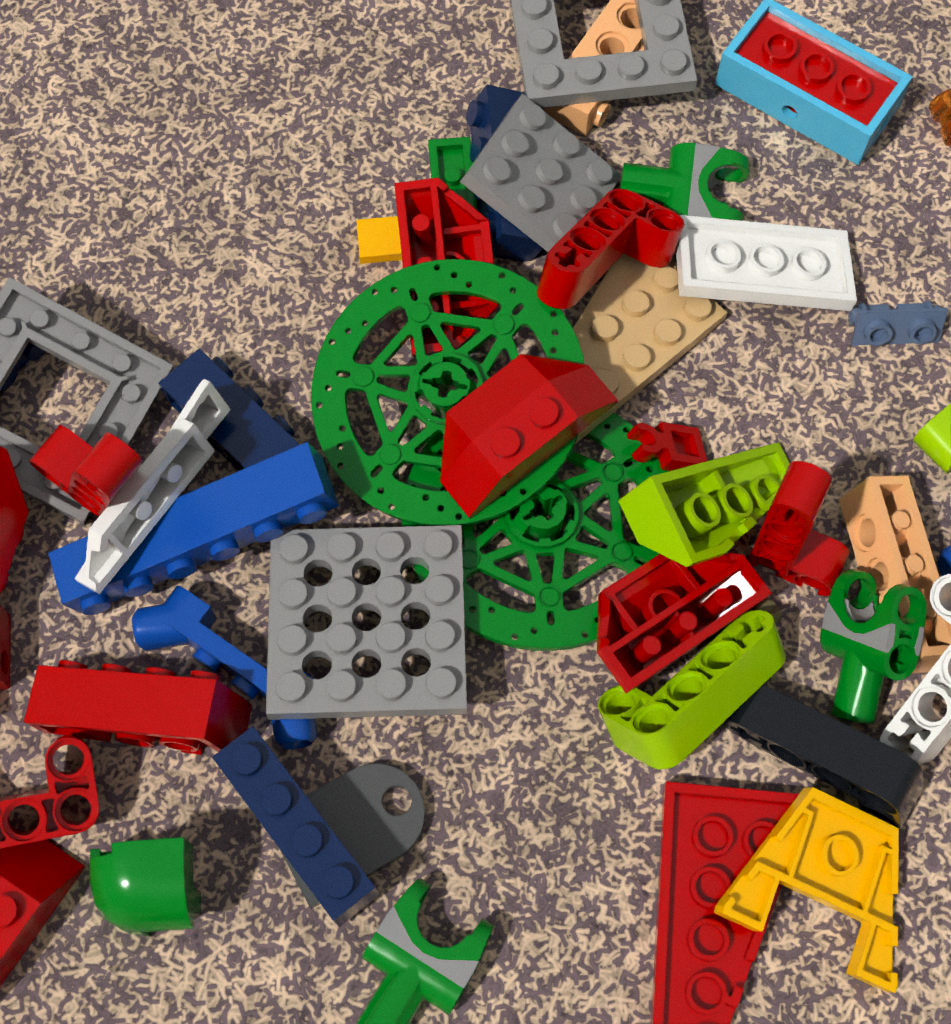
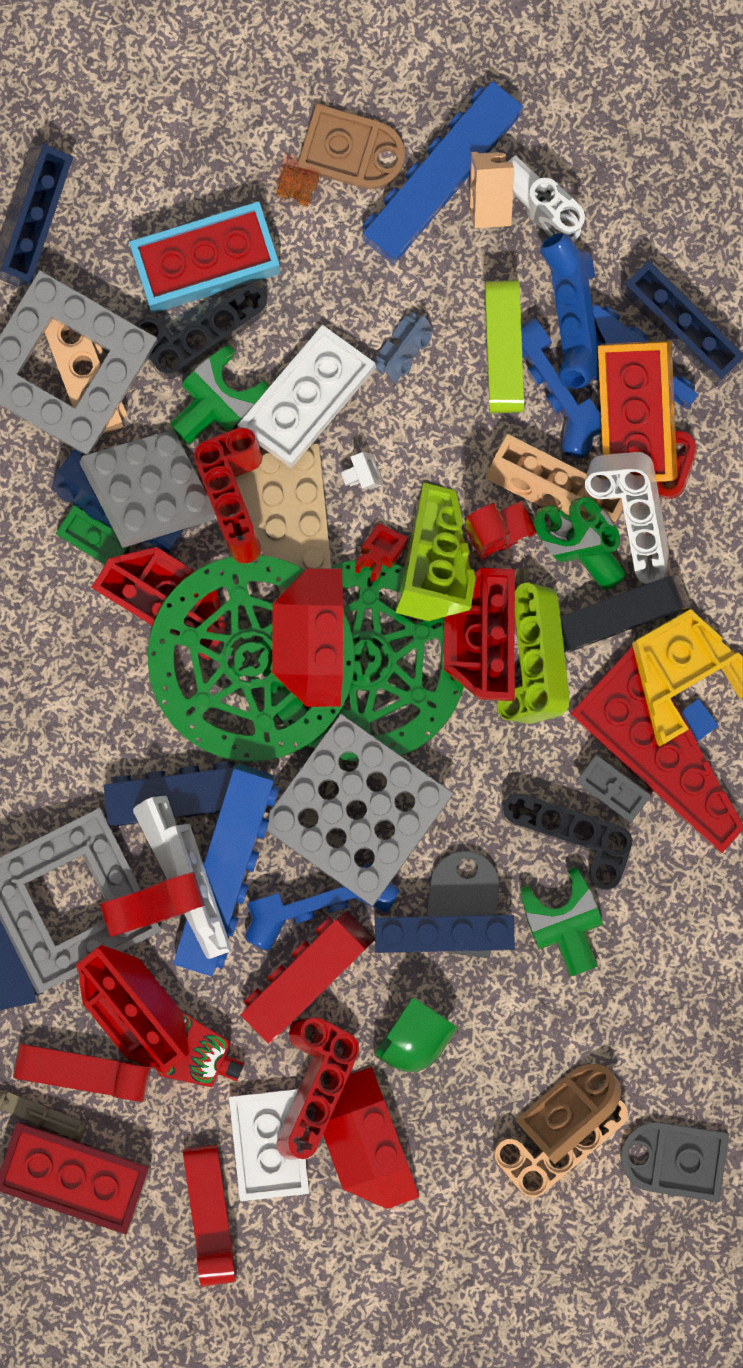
camera: 60 degrees left, 15 degrees up
(379, 240) = (100, 616): yellow tile -> none
(524, 881) = (565, 833): none -> black beam
(623, 899) = (614, 787): none -> dark grey hinge
(737, 372) = (364, 472): none -> white tile
(781, 943) = (699, 719): none -> blue tile
(791, 147) = (204, 327): none -> black beam

